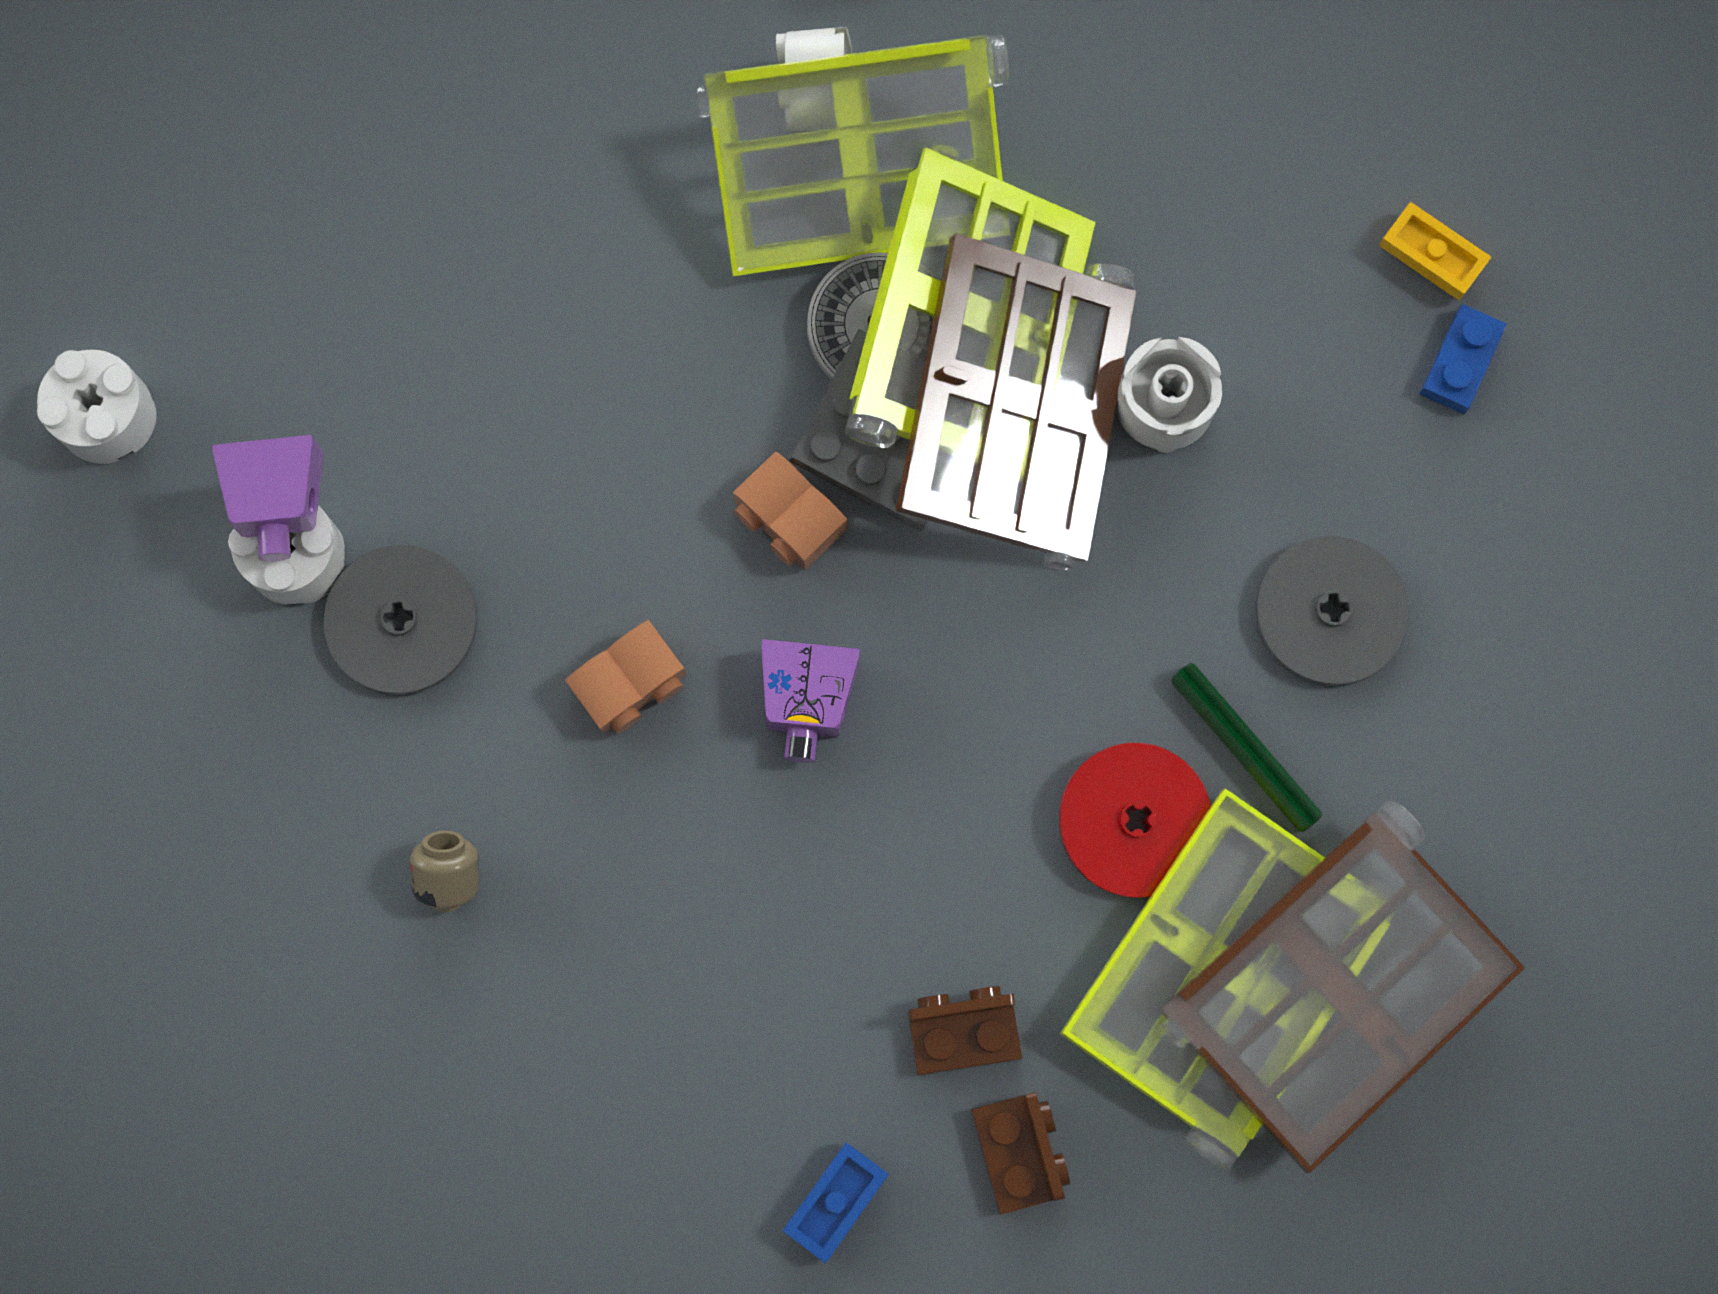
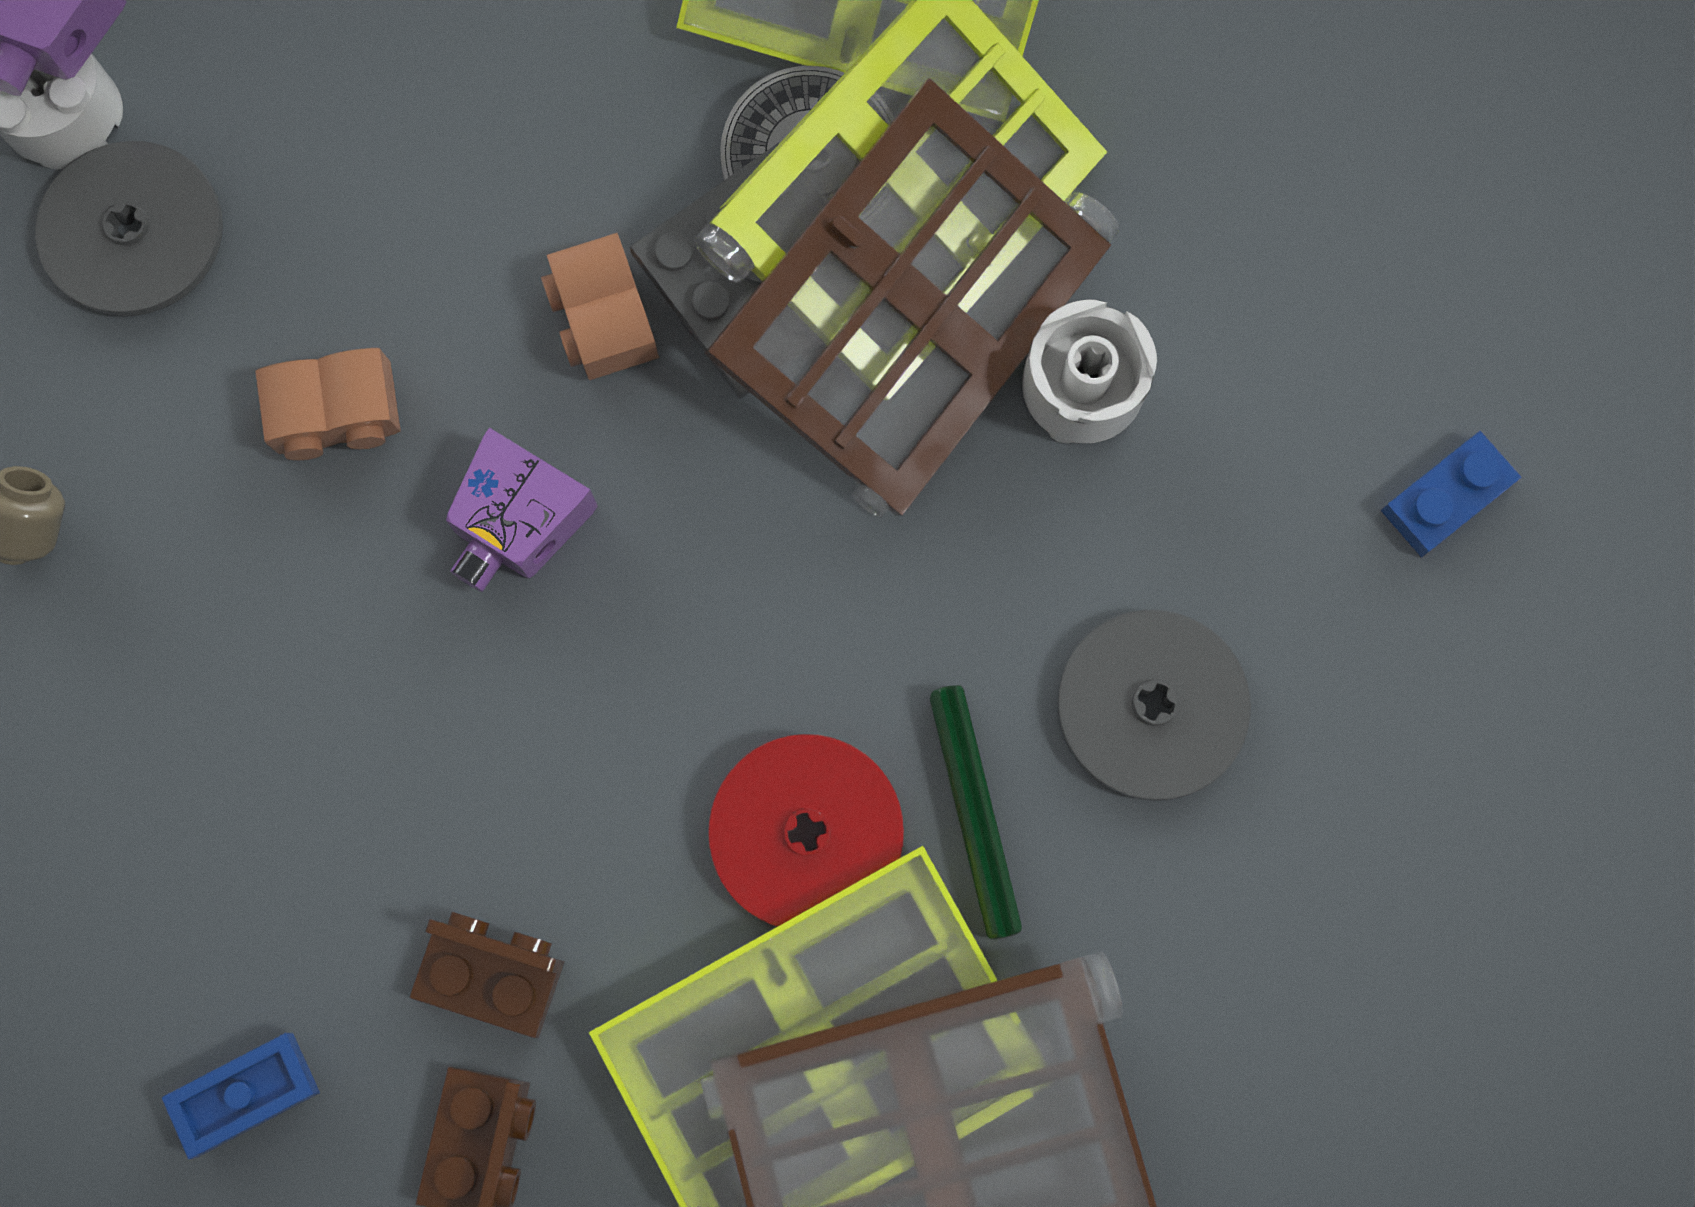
camera: 25 degrees right, 0 degrees up
(1434, 251) = (1478, 358): yellow plate -> none

